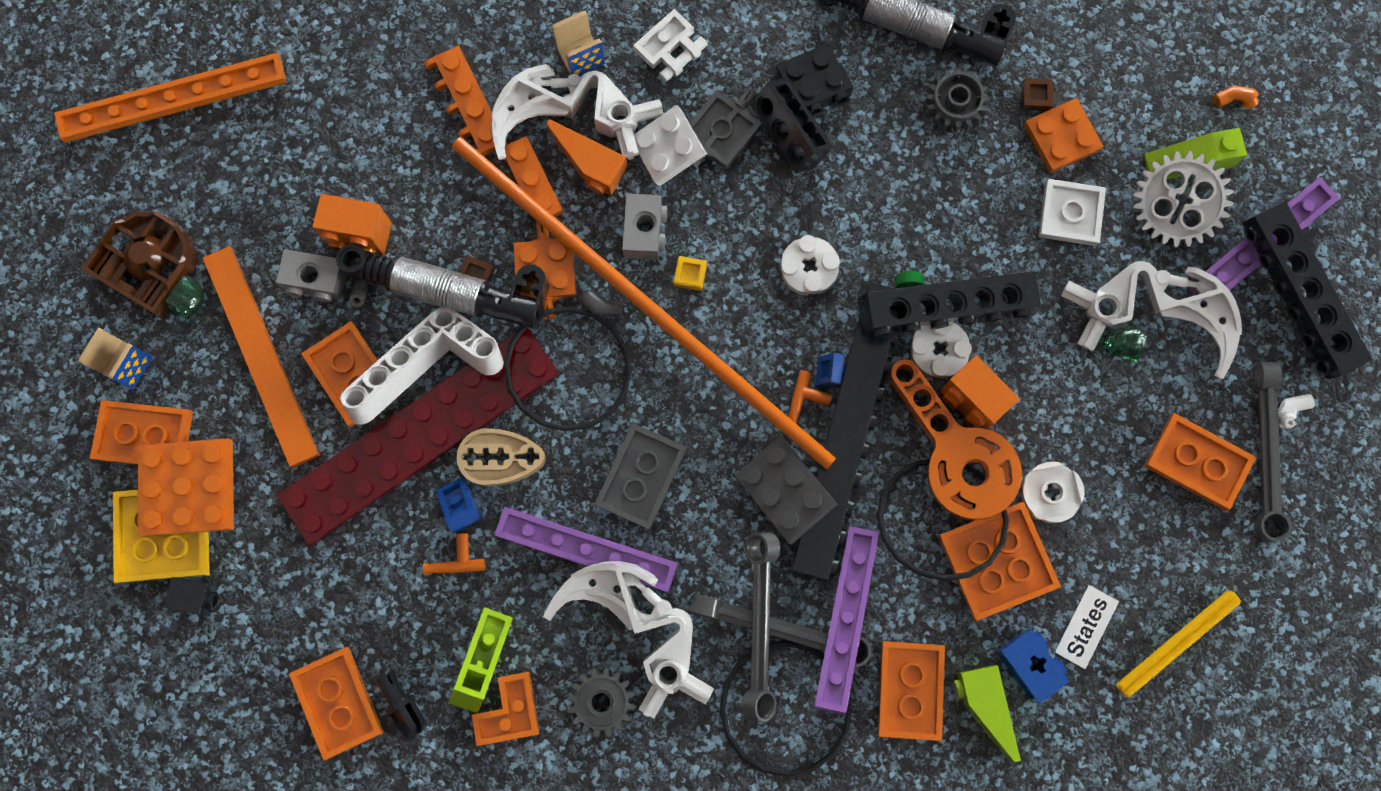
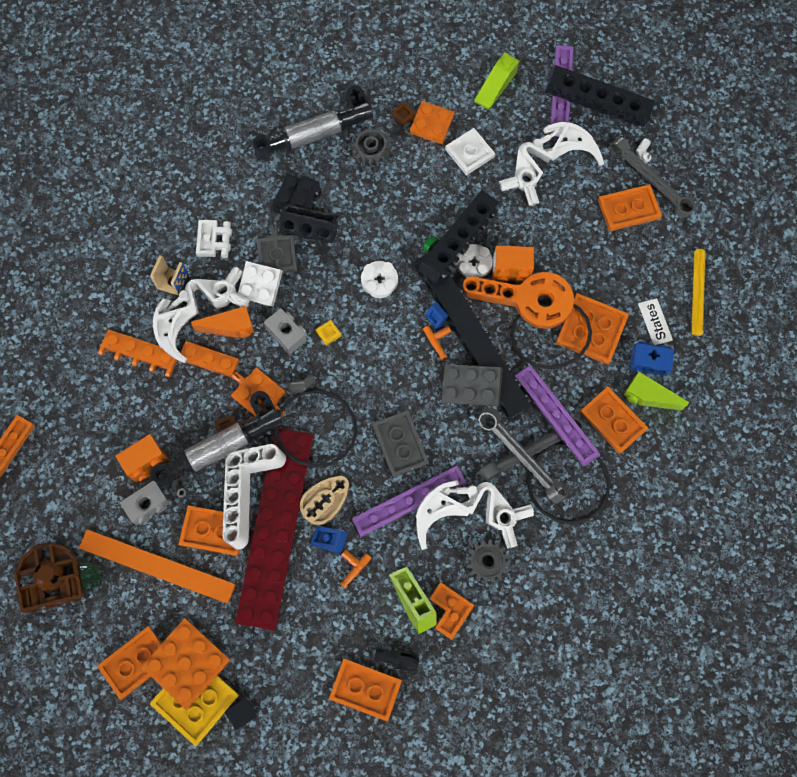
camera: 50 degrees left, 5 degrees down
(115, 358) = (75, 638): tan piece -> none
(645, 304) = (318, 364): orange piece -> none
(1061, 478) = (583, 268): white plate -> none
(1125, 342) = (549, 186): clear green piece -> none
(1208, 209) = (526, 98): white gear -> none
(1246, 95) = (492, 37): orange arm -> none

